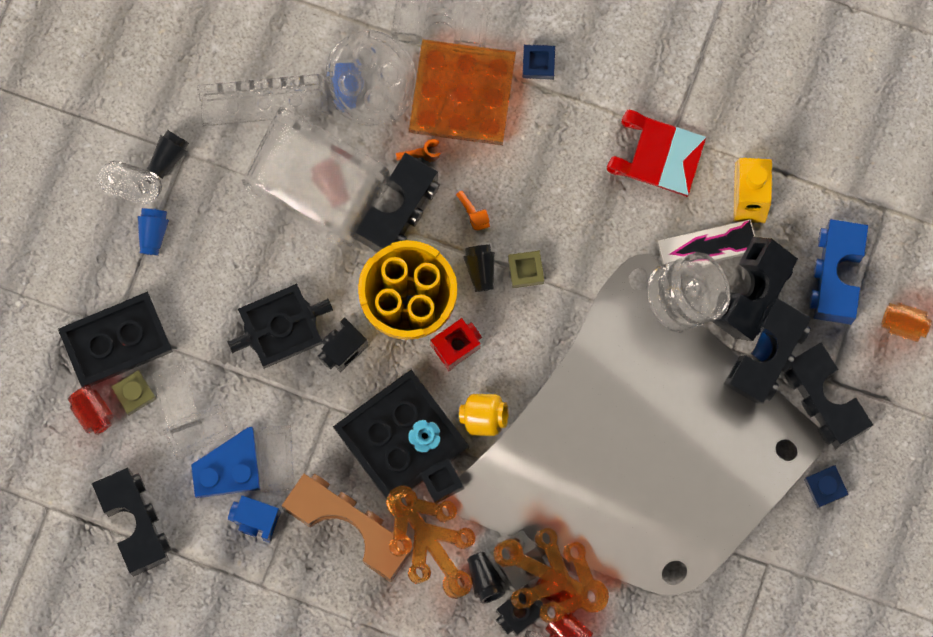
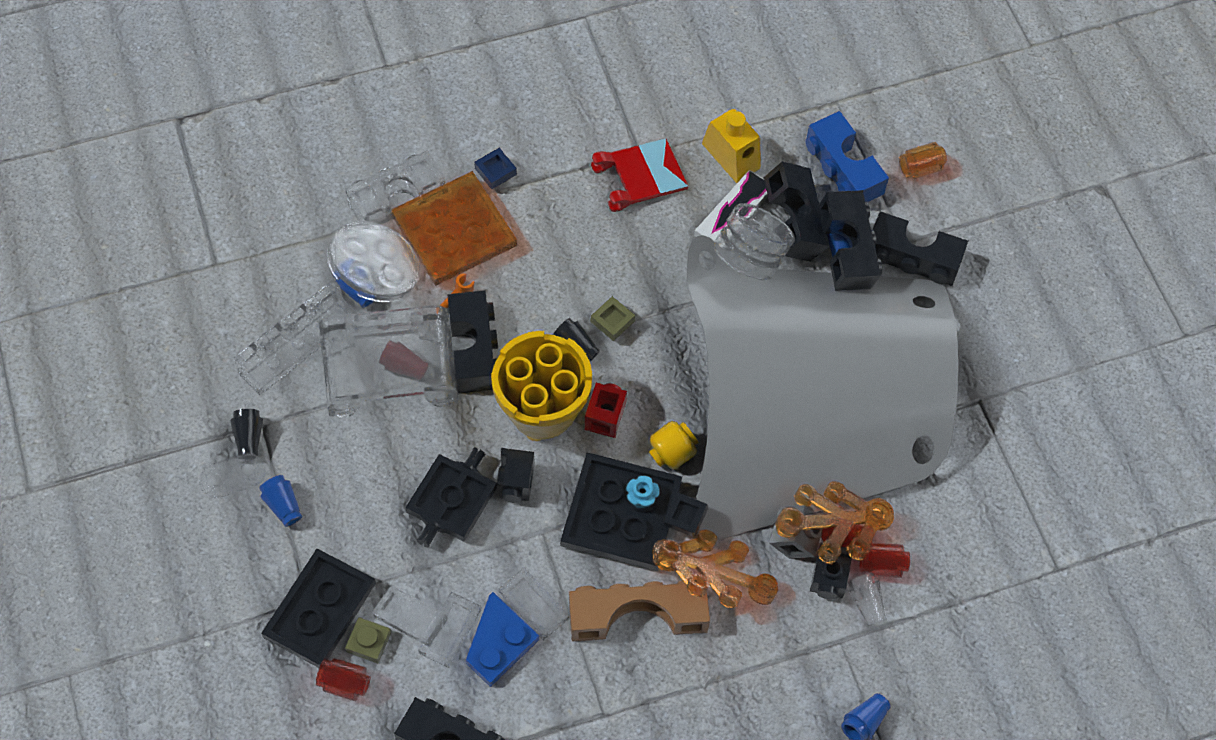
camera: 40 degrees left, 15 degrees down
(254, 517) = (555, 660): blue brick -> none
(479, 220) = (542, 311): orange hand -> none
(485, 579) = (785, 569): black cone -> none
(826, 486) = (971, 314): dark blue plate -> none

